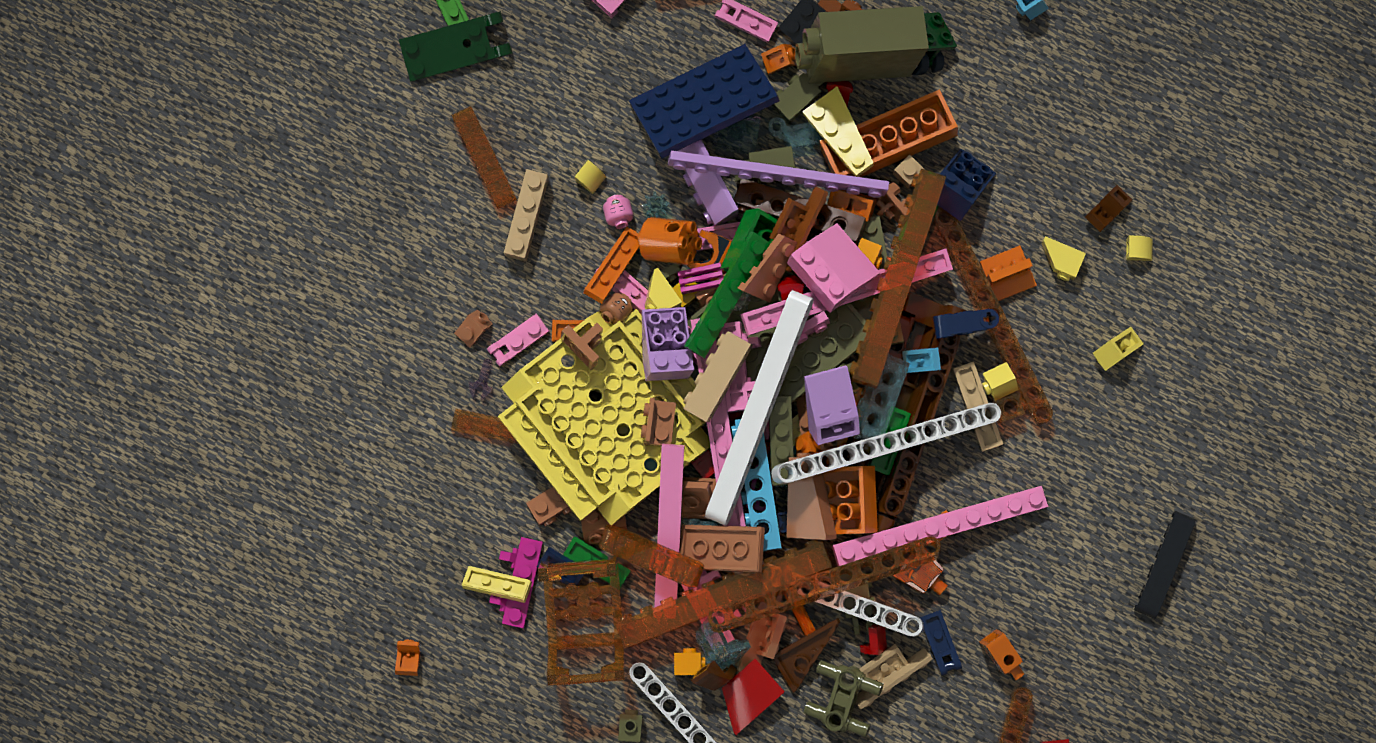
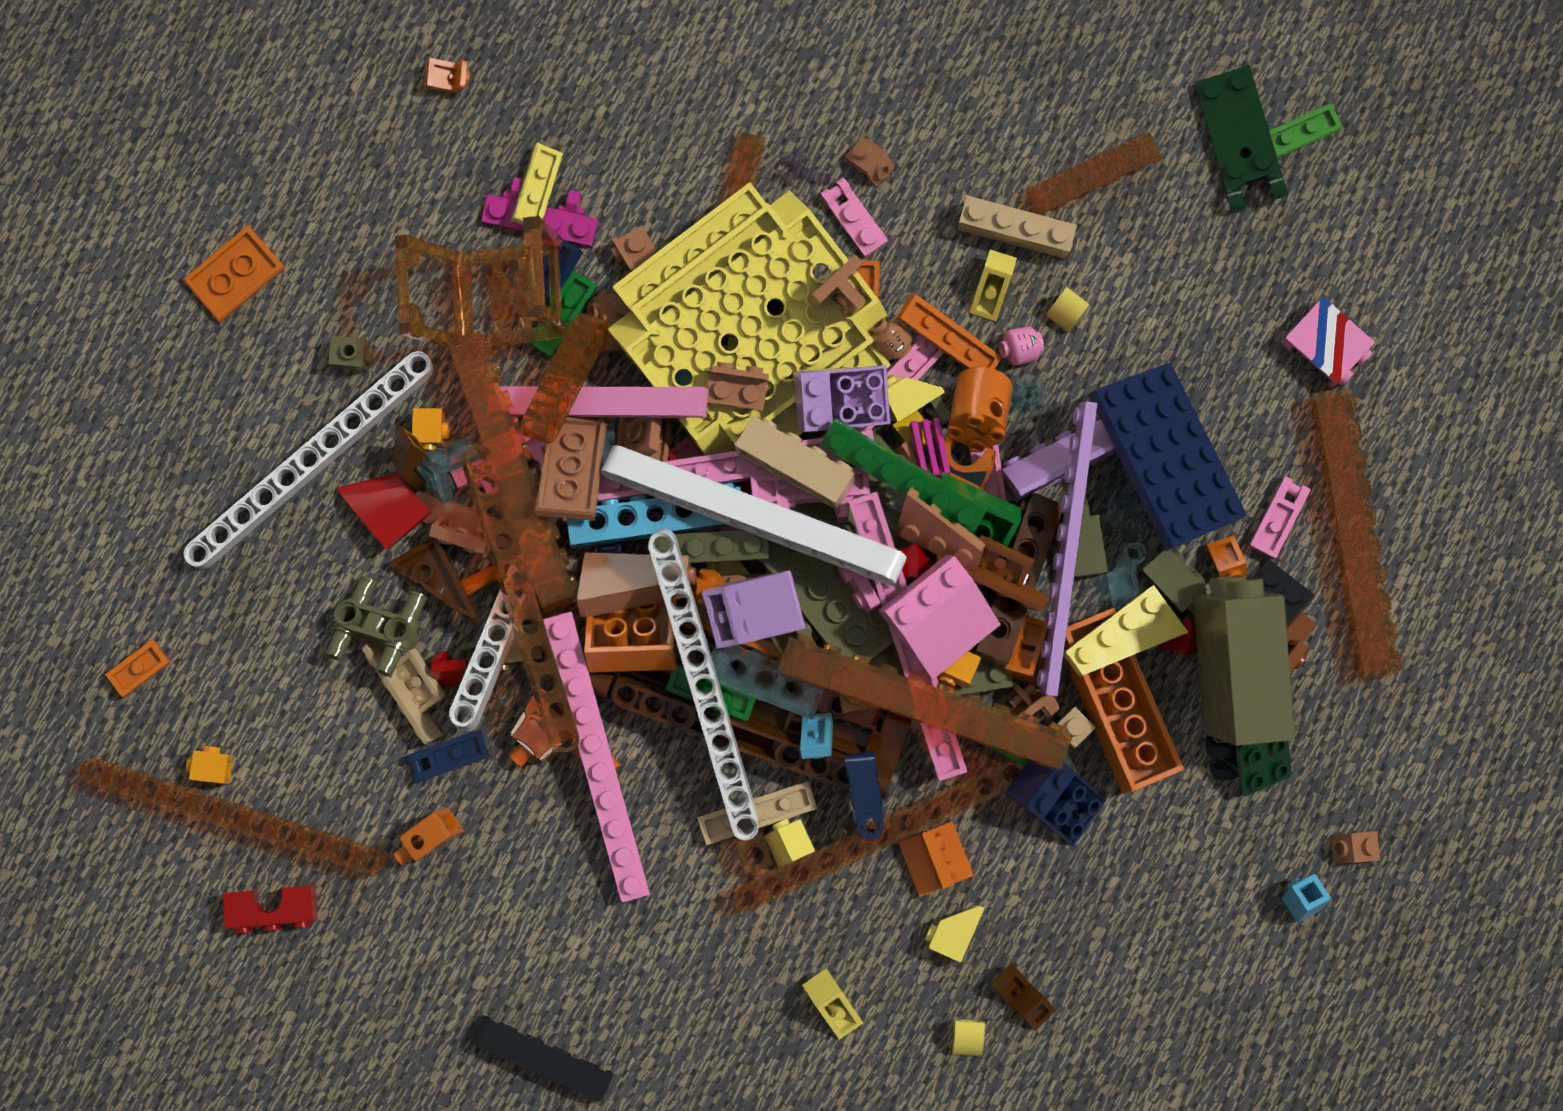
camera: 85 degrees right, 0 degrees up
(570, 232) = (993, 285): none -> light yellow slope

